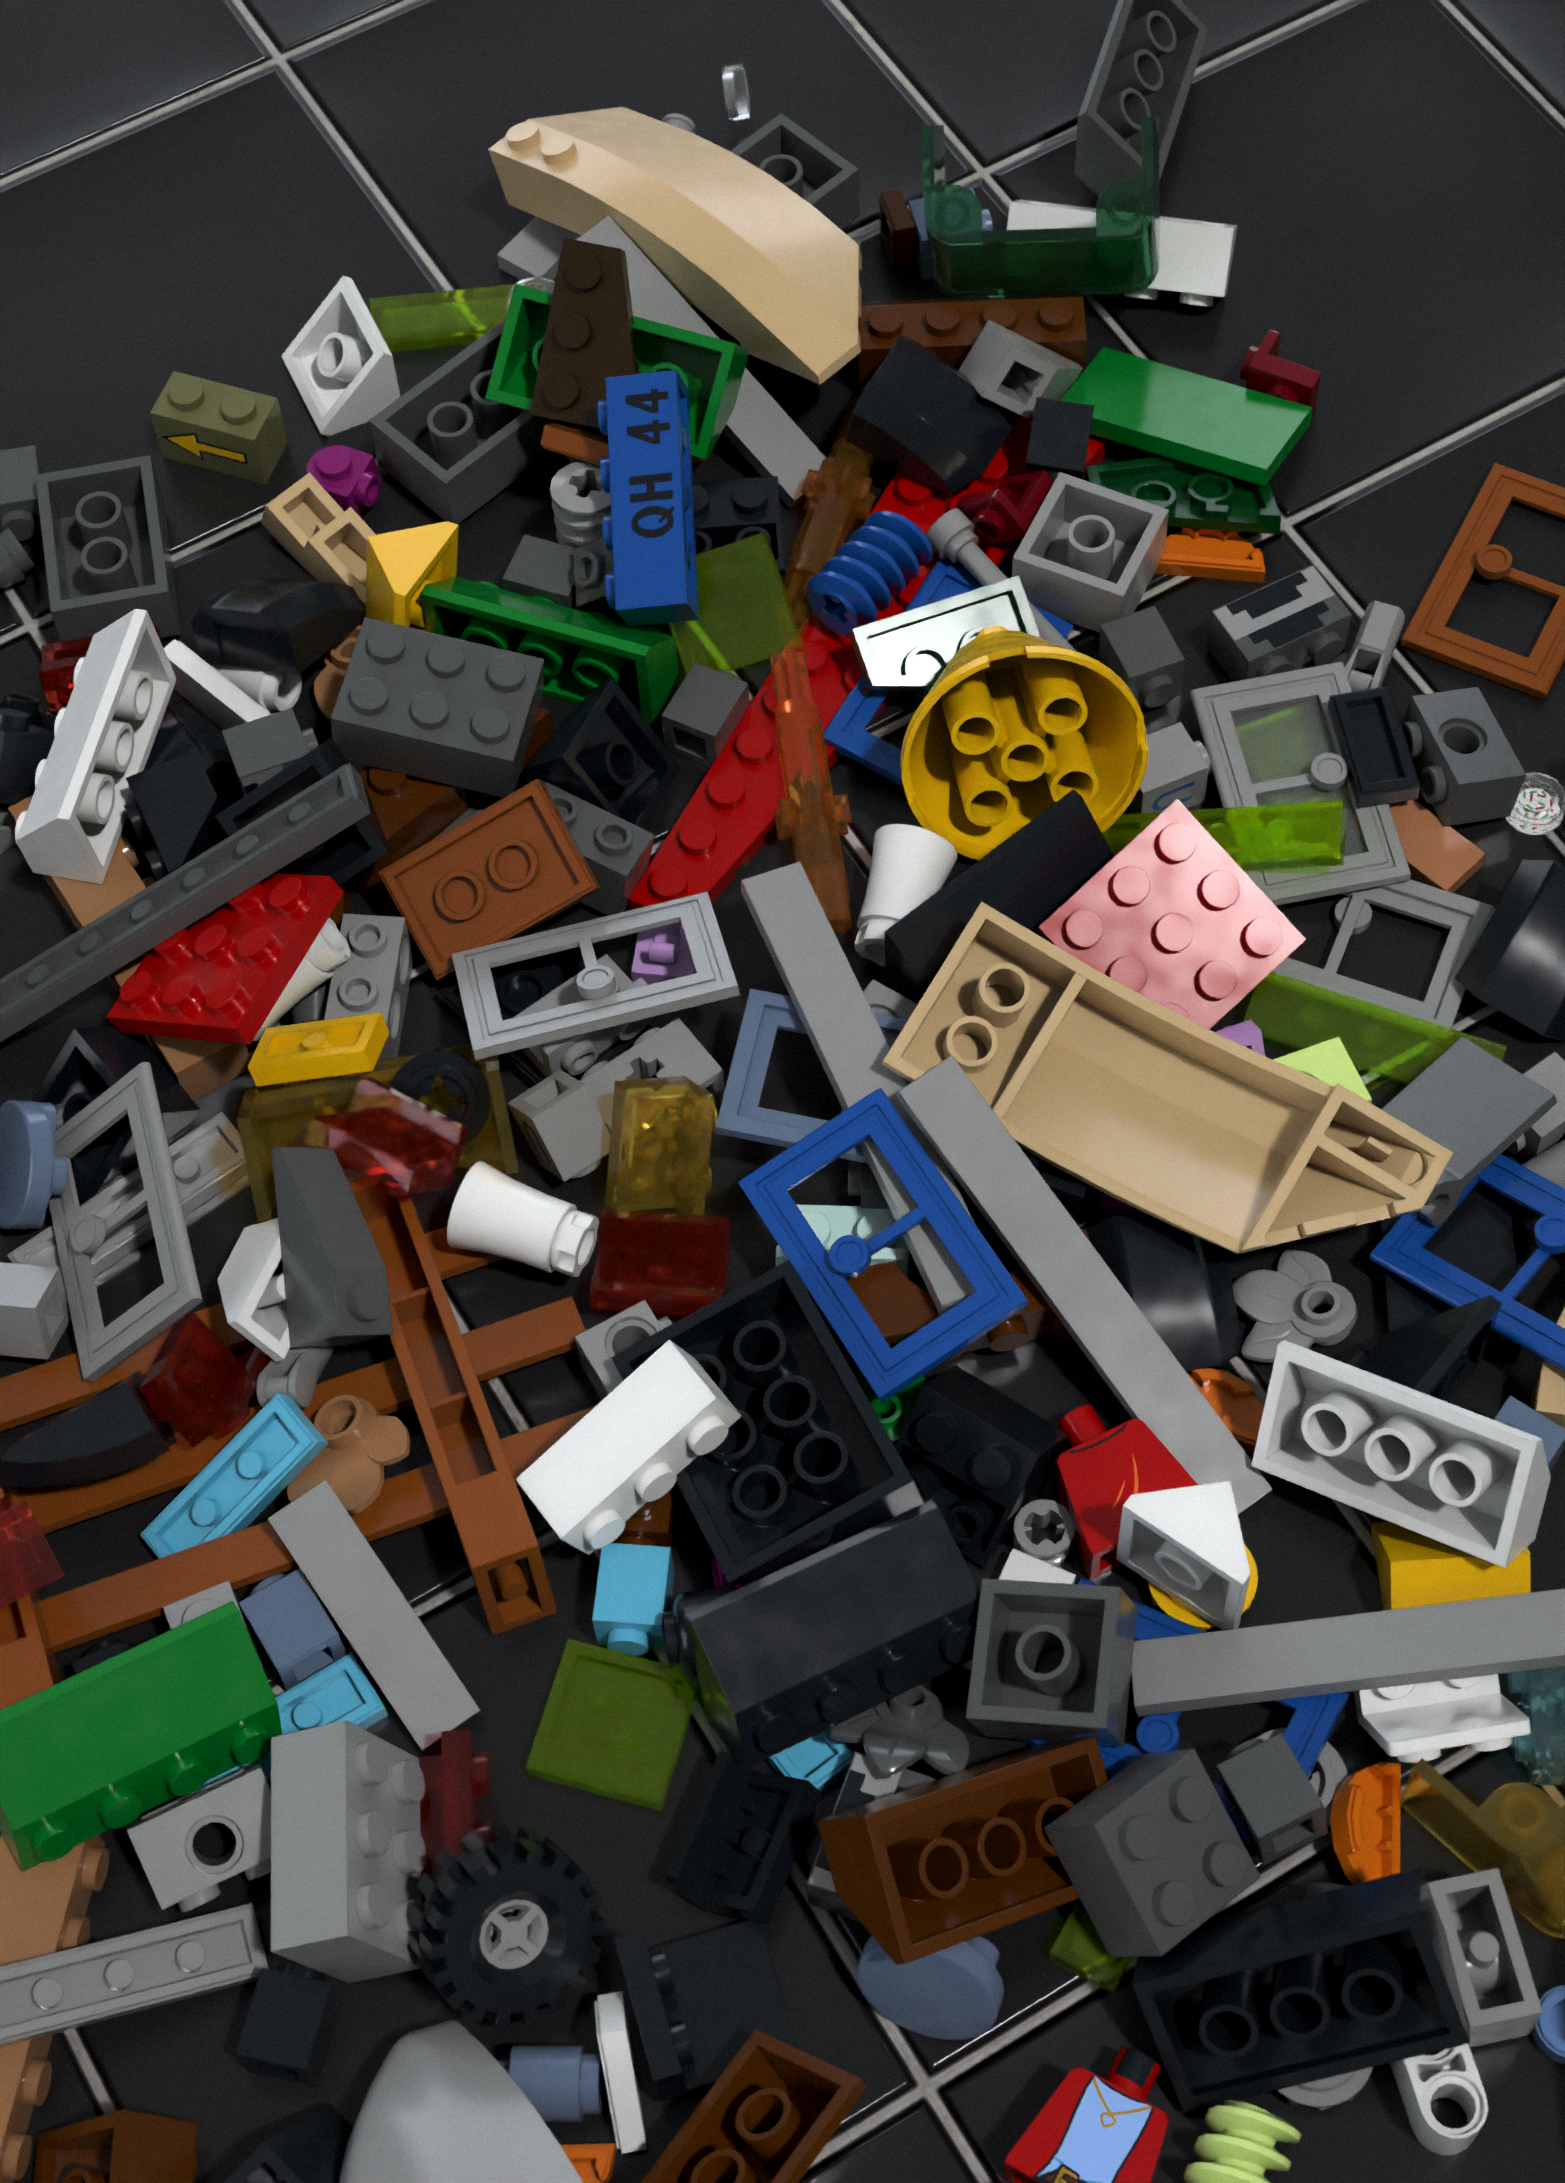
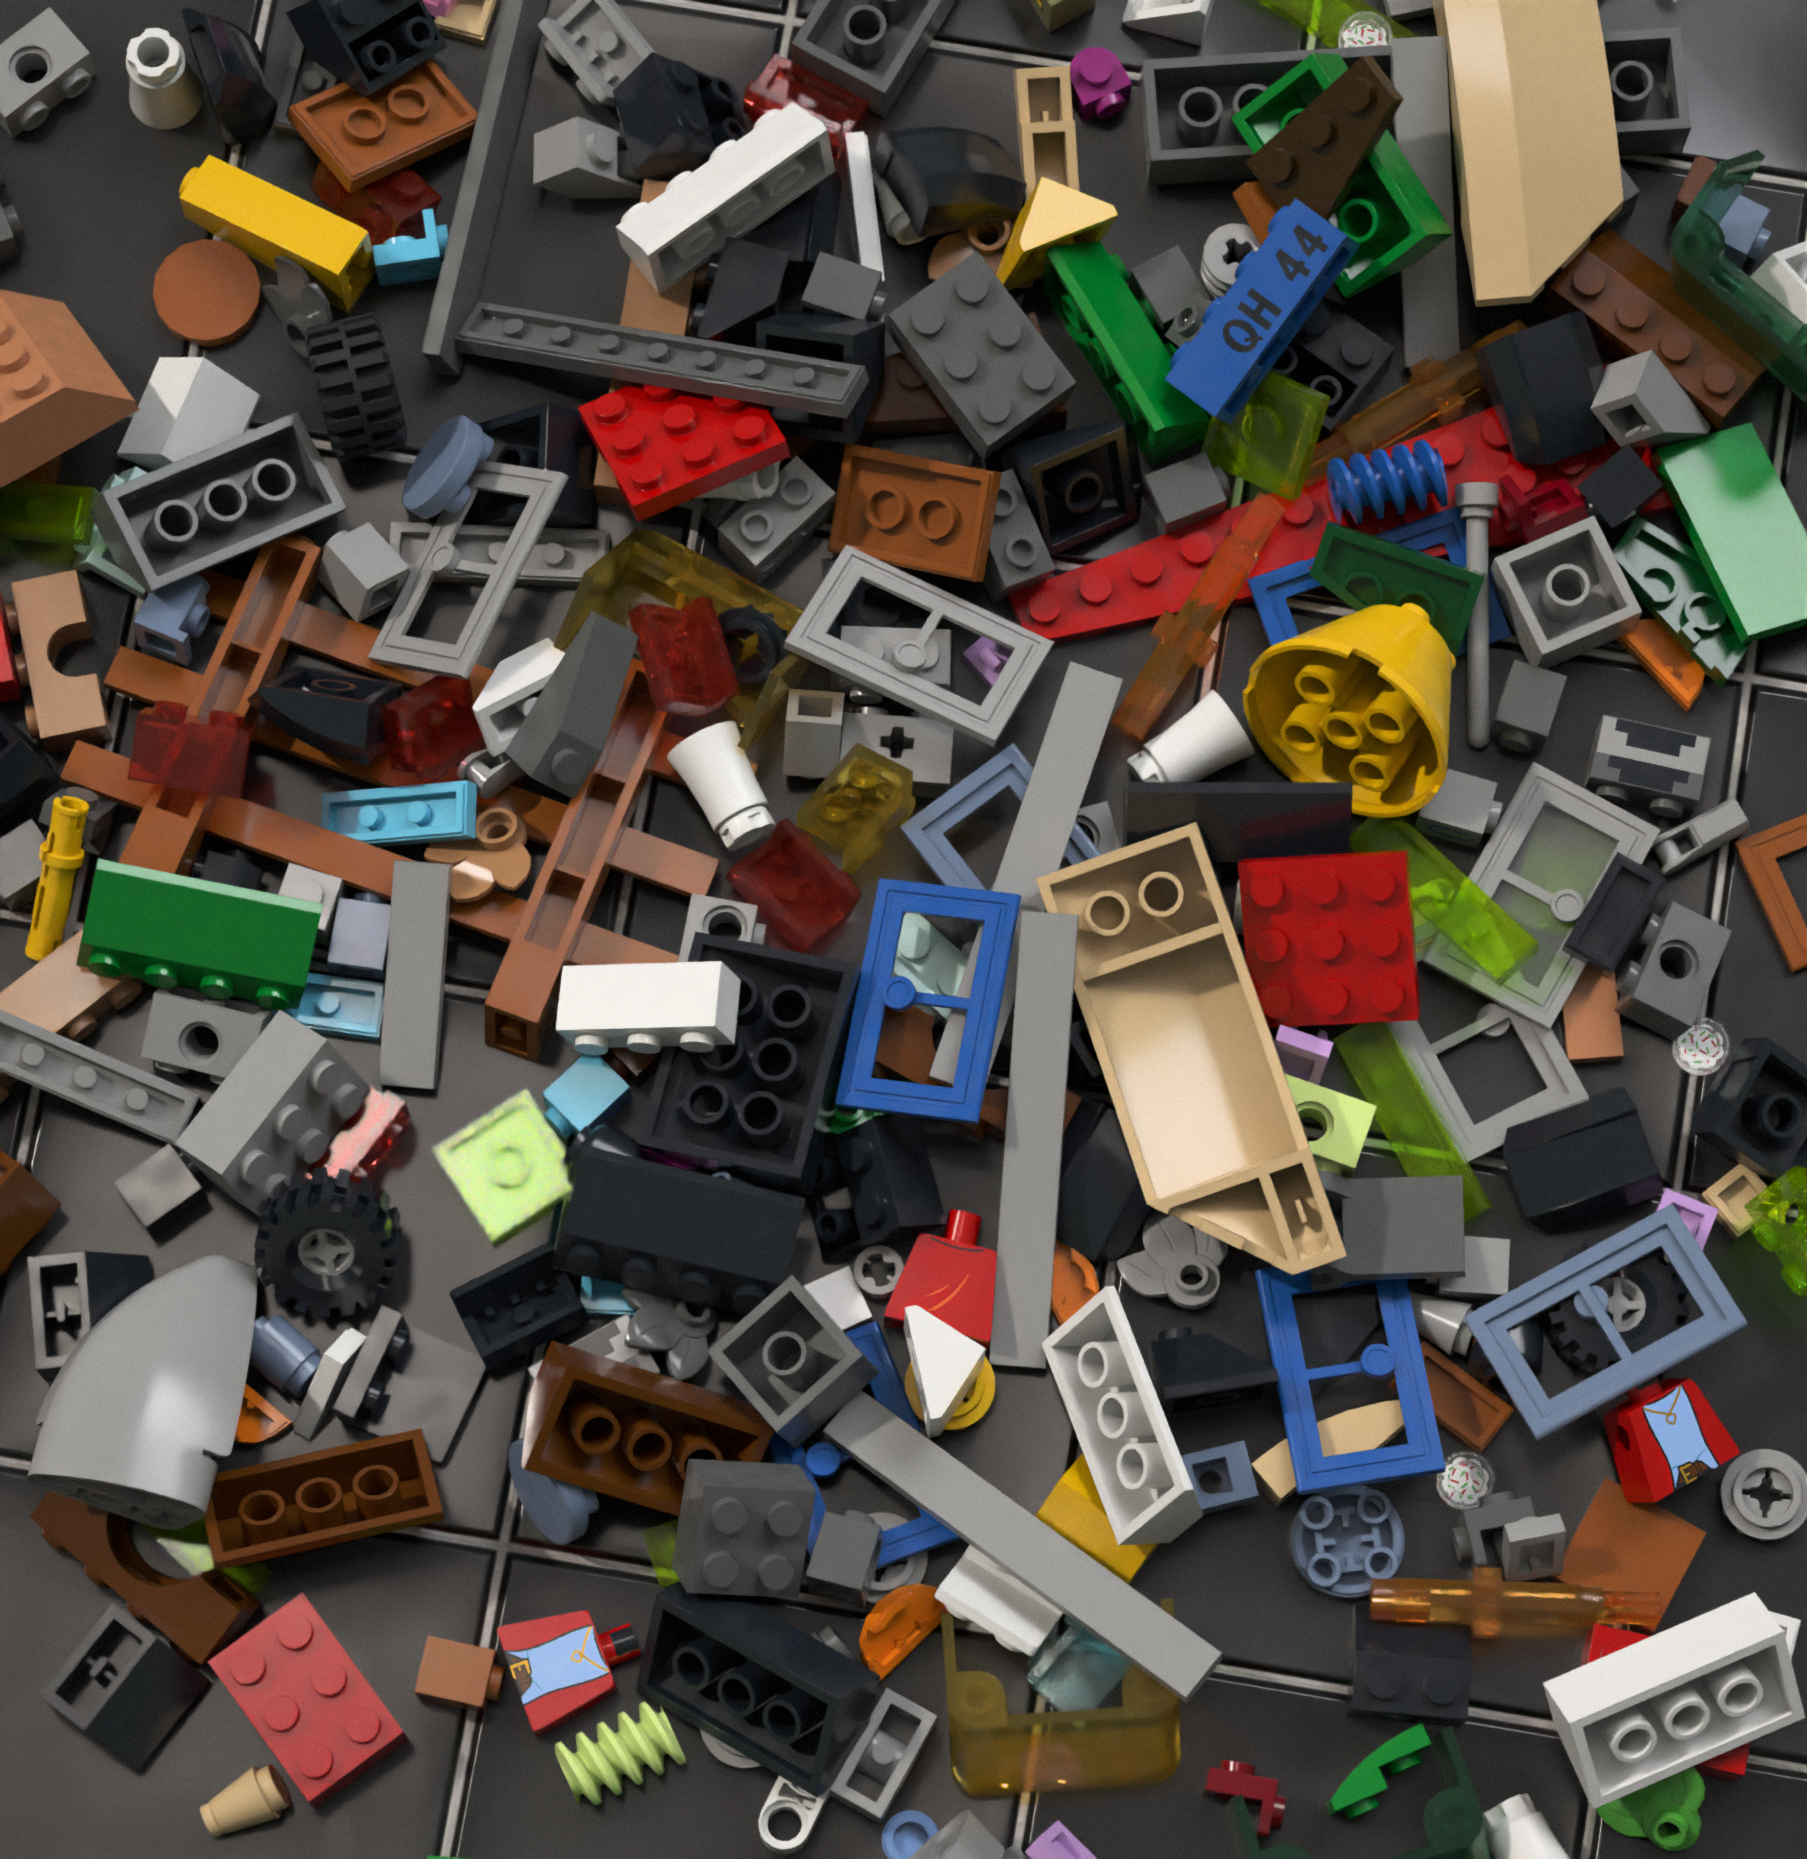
camera: 35 degrees right, 15 degrees up
(319, 1049) = (697, 548): yellow plate -> none

